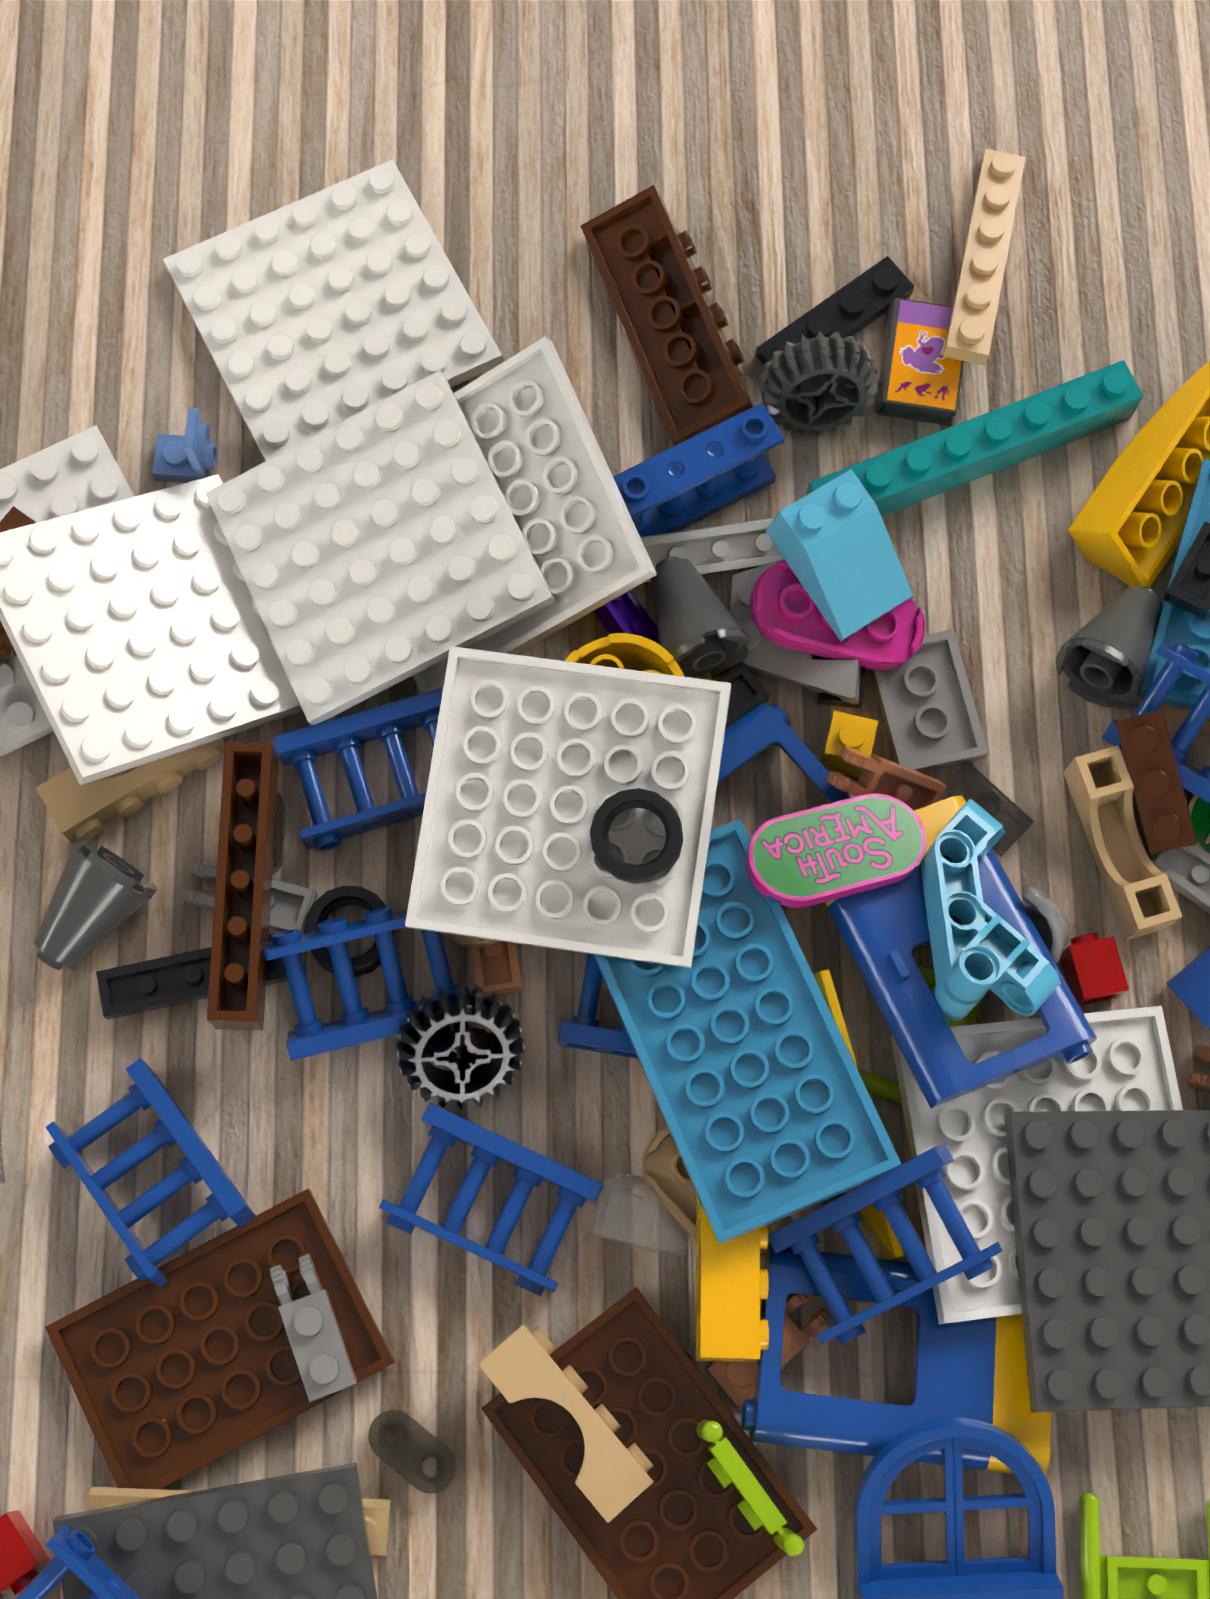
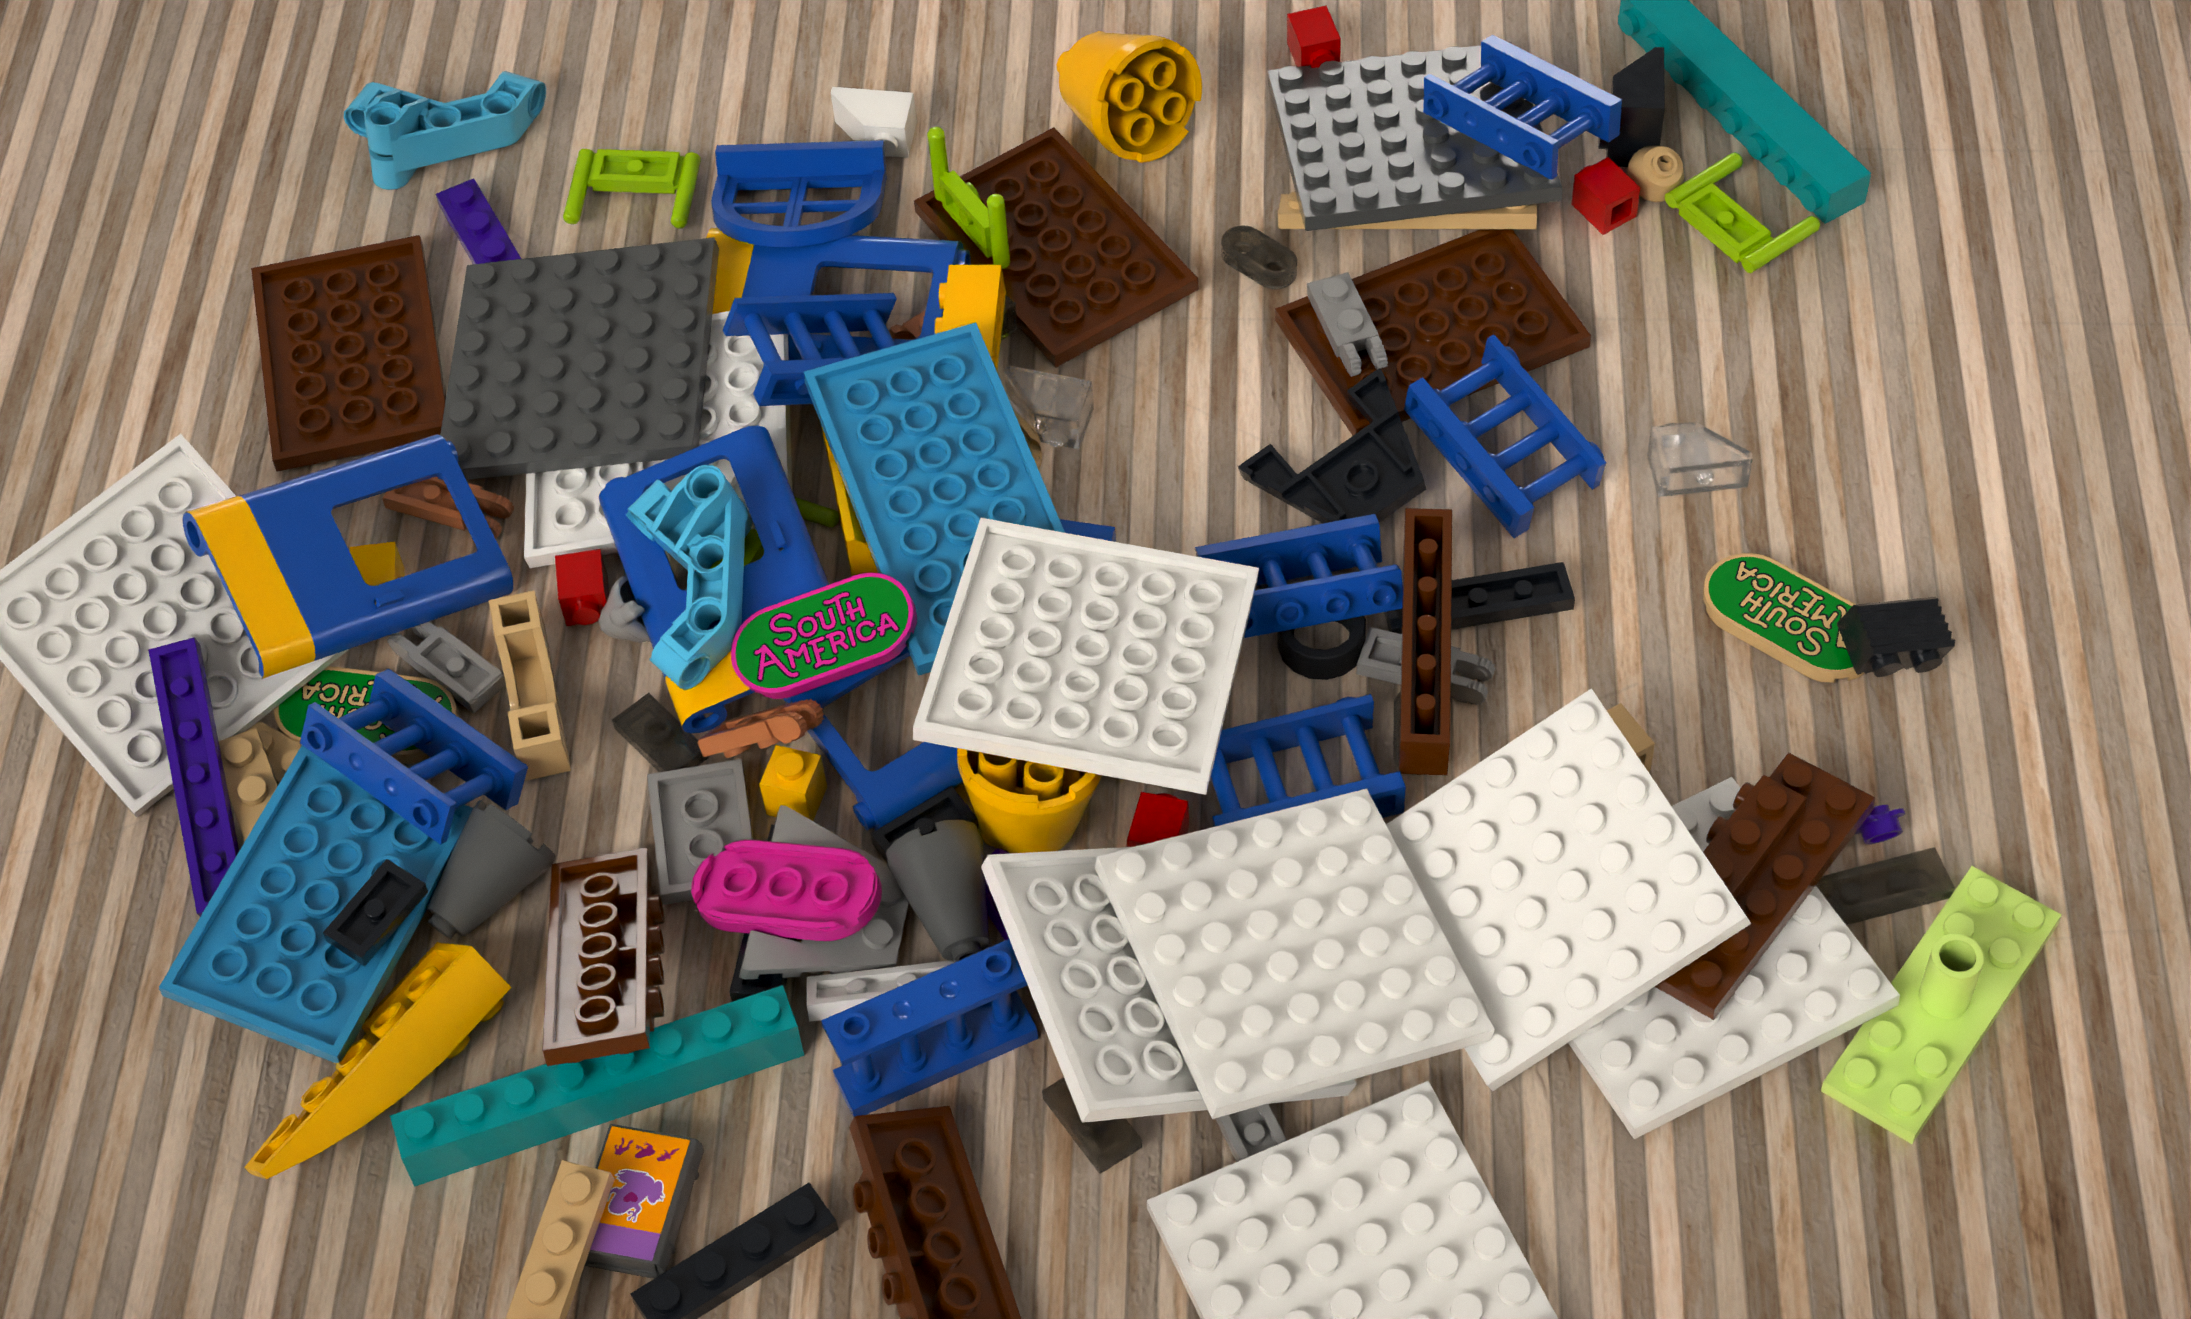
camera: 170 degrees left, 20 degrees down
(89, 904) = (1580, 651): dark grey cone -> none
(187, 456) = (1525, 1108): medium blue bracket -> none
(305, 1123) = (1358, 478): none -> black wing
(487, 1151) = (1177, 457): blue fence -> none
(494, 1051) = (1210, 517): black gear -> none
(609, 1471) = (1152, 285): tan arch -> none
(628, 800) = (1022, 627): black tyre -> none
(819, 383) = (769, 1137): dark grey gear -> none
(841, 554) = (778, 926): medium azure slope -> none
(991, 539) = (602, 958): none -> reddish brown plate
(1156, 781) = (482, 719): reddish brown plate -> none

